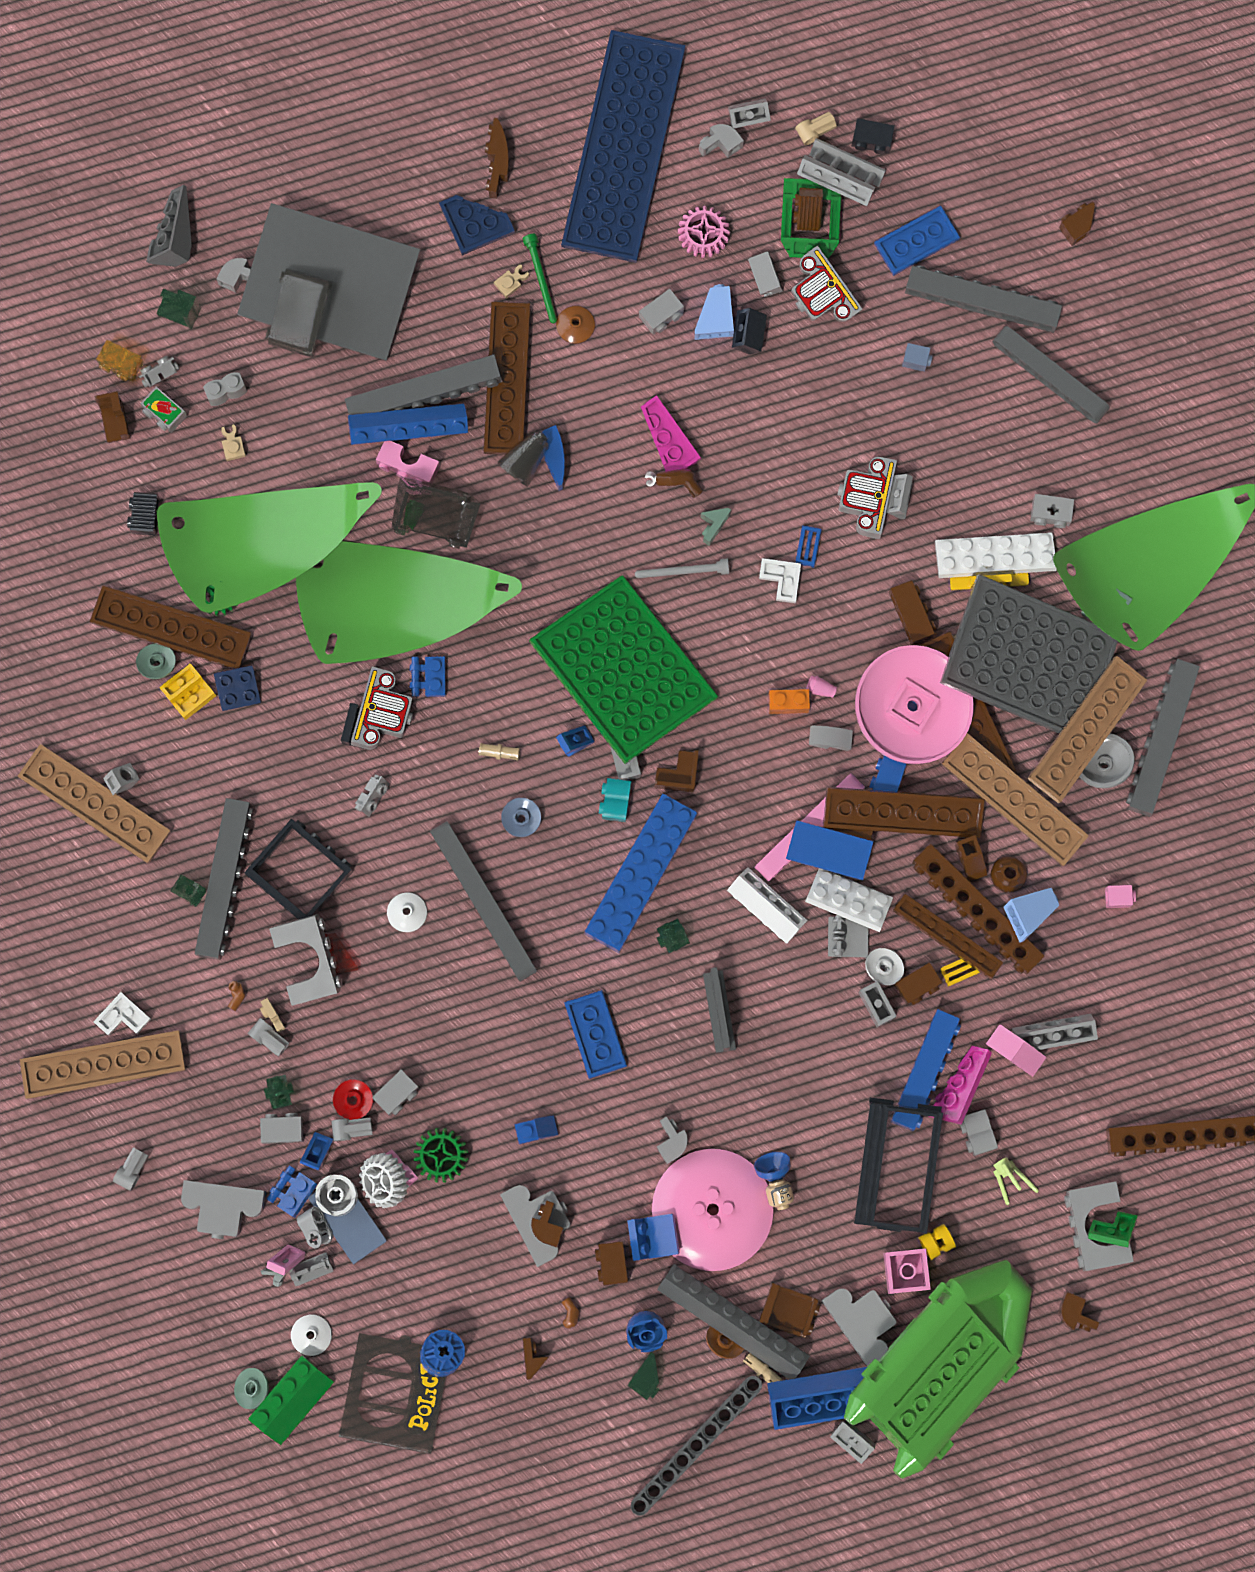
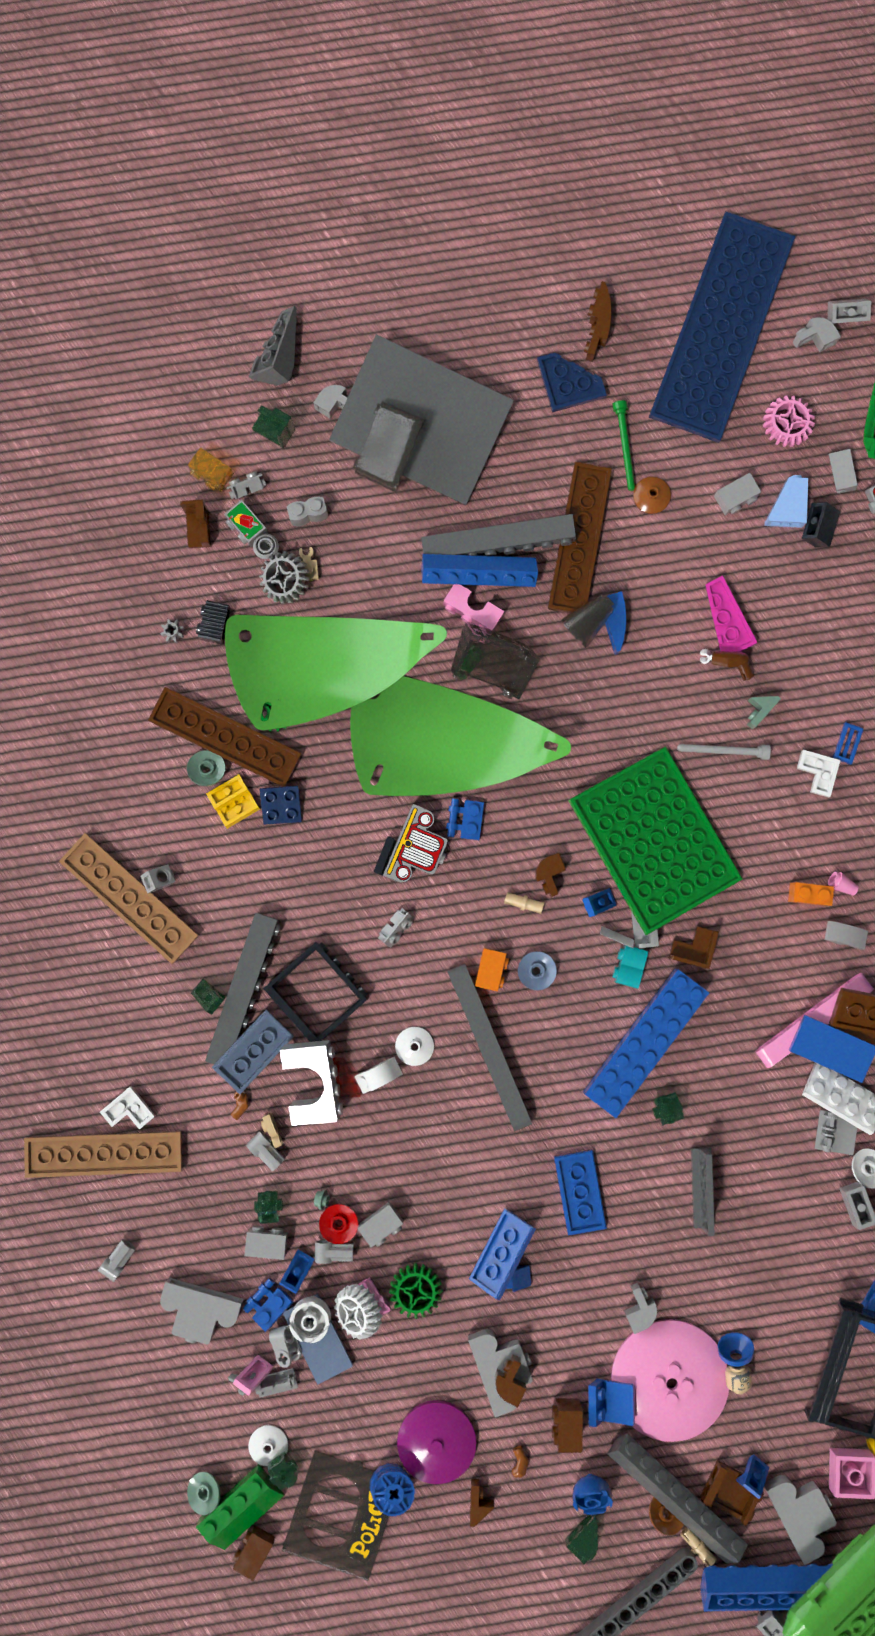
camera: 10 degrees right, 5 degrees up
(108, 531) = (177, 632): none -> light grey gear
(187, 429) = (265, 546): none -> light grey cone
(202, 444) = (290, 591): none -> light grey gear
(241, 938) = (252, 1051): none -> sand blue tile
(310, 1441) = (253, 1553): none -> reddish brown brick
(329, 1346) = (283, 1471): none -> clear green brick
(332, 1077) = (321, 1199): none -> sand green plate
(373, 944) = (378, 1075): none -> white brick
(473, 823) = (491, 969): none -> orange brick
(482, 1305) = (436, 1442): none -> magenta dish
(509, 283) = (593, 444): tan plate -> none
(517, 714) = (546, 869): none -> reddish brown brick
(523, 1104) = (502, 1254): none -> tile
(598, 772) = (617, 937): none -> white sticker
(767, 905) = (764, 1092): white brick -> none
(807, 1289) = (754, 1476): none -> blue slope

